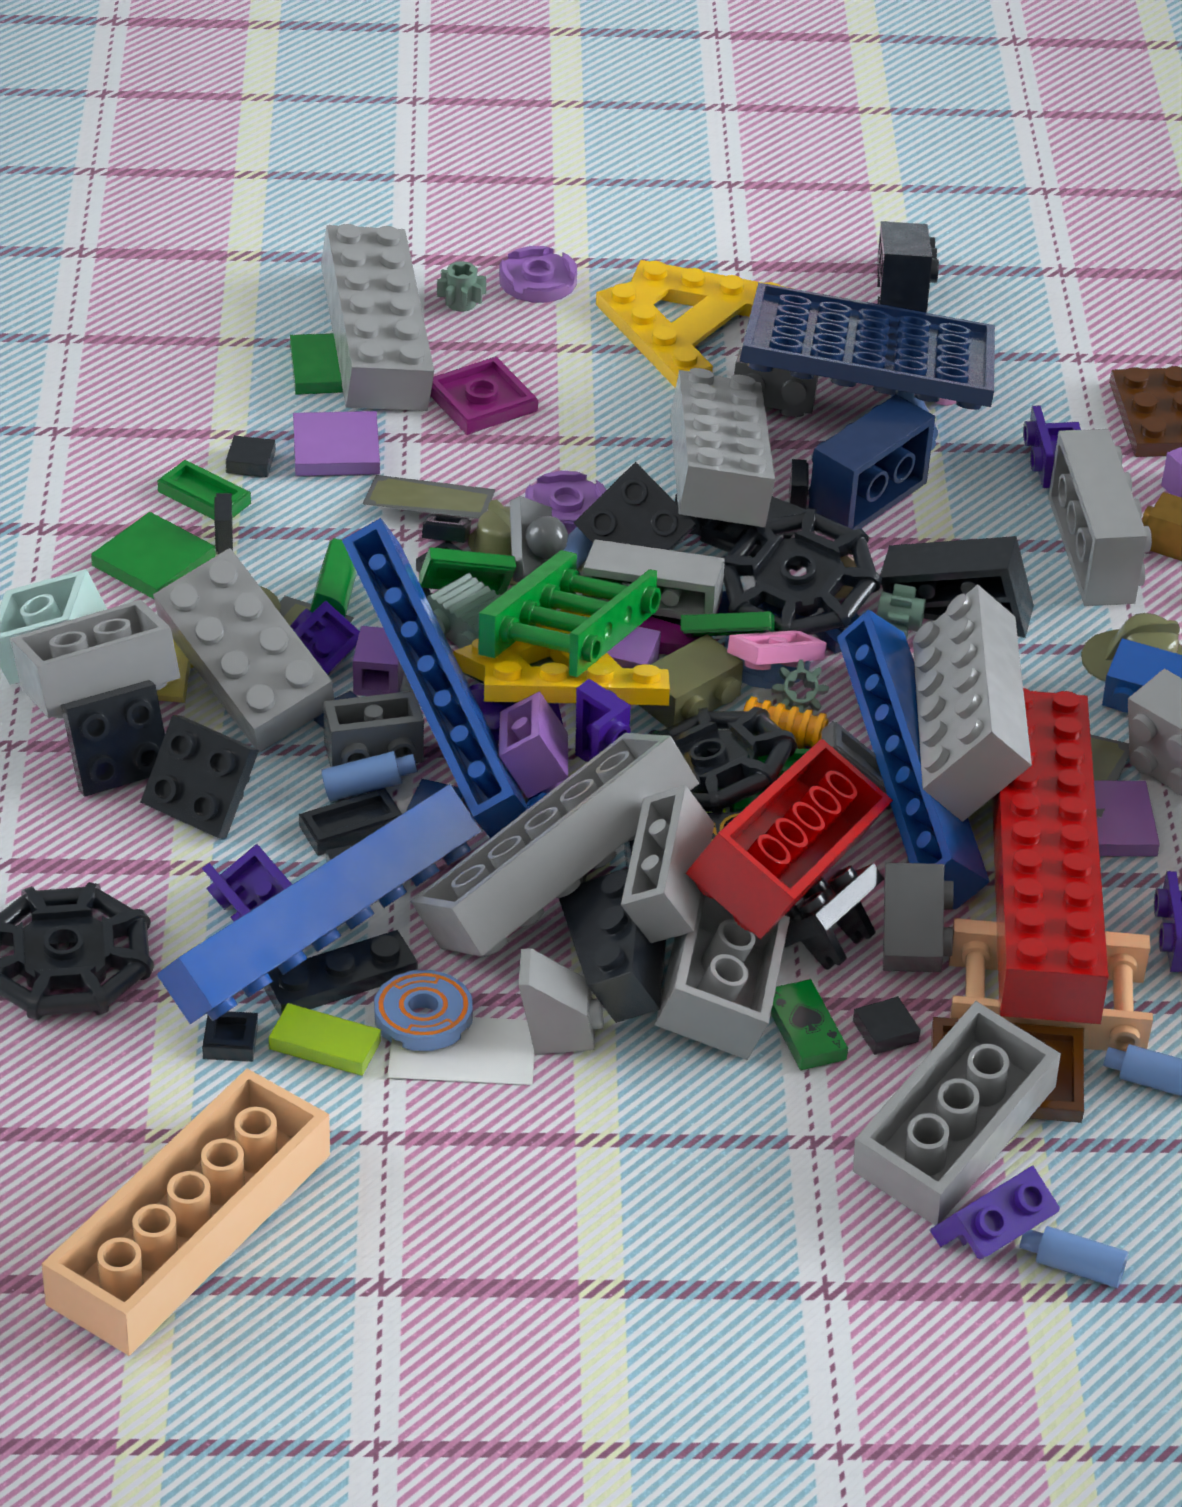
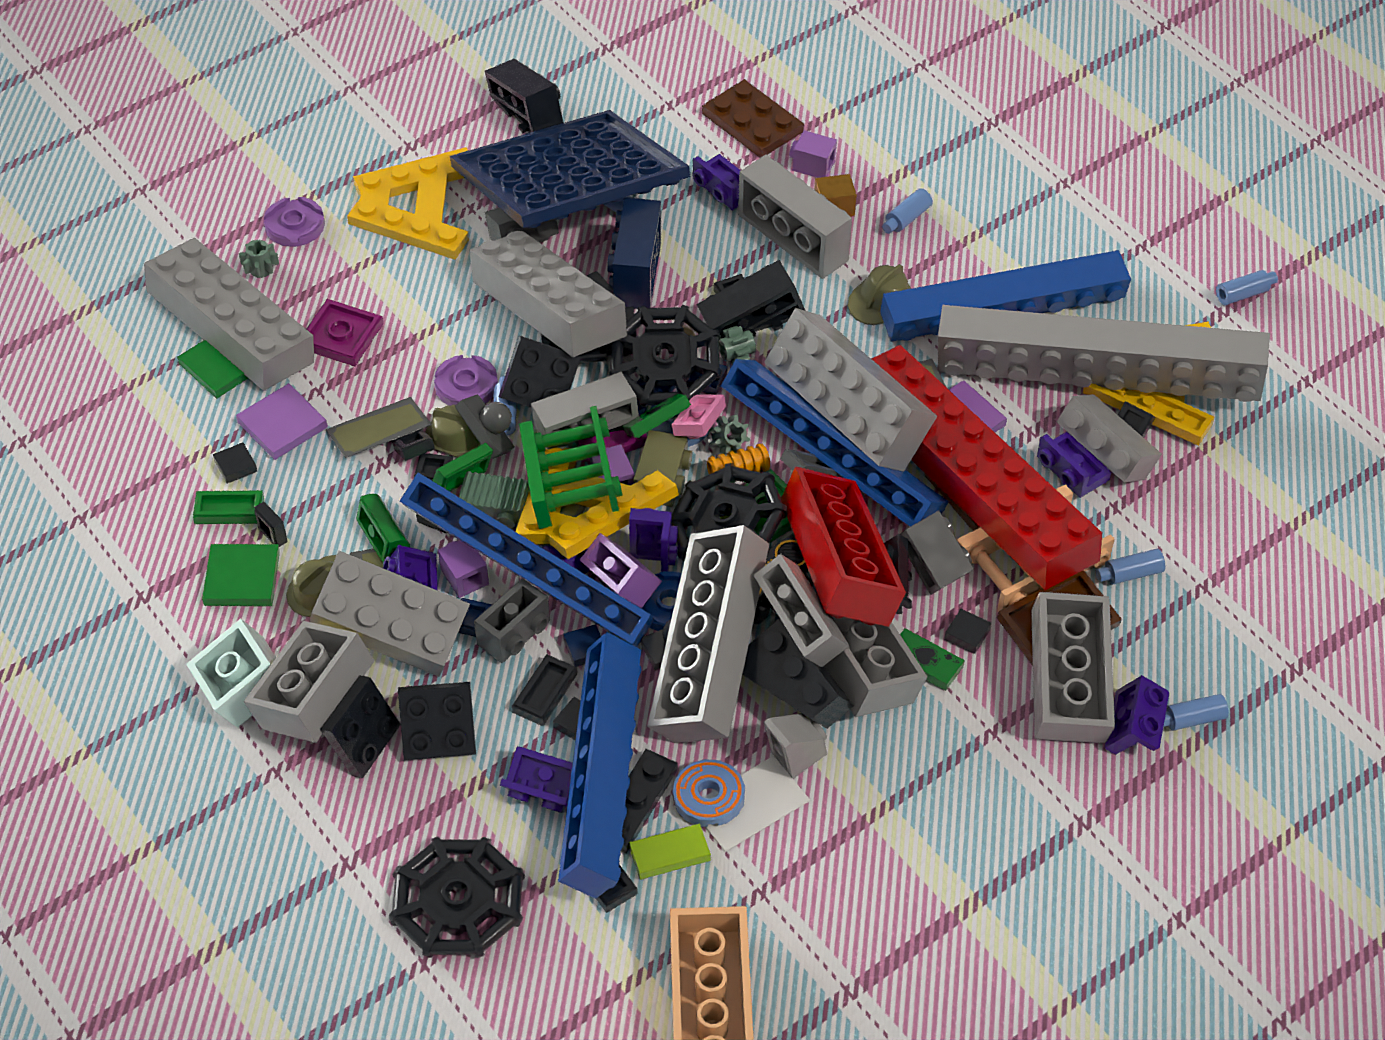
camera: 35 degrees left, 10 degrees up
(366, 775) = (531, 653): medium blue cylinder -> none

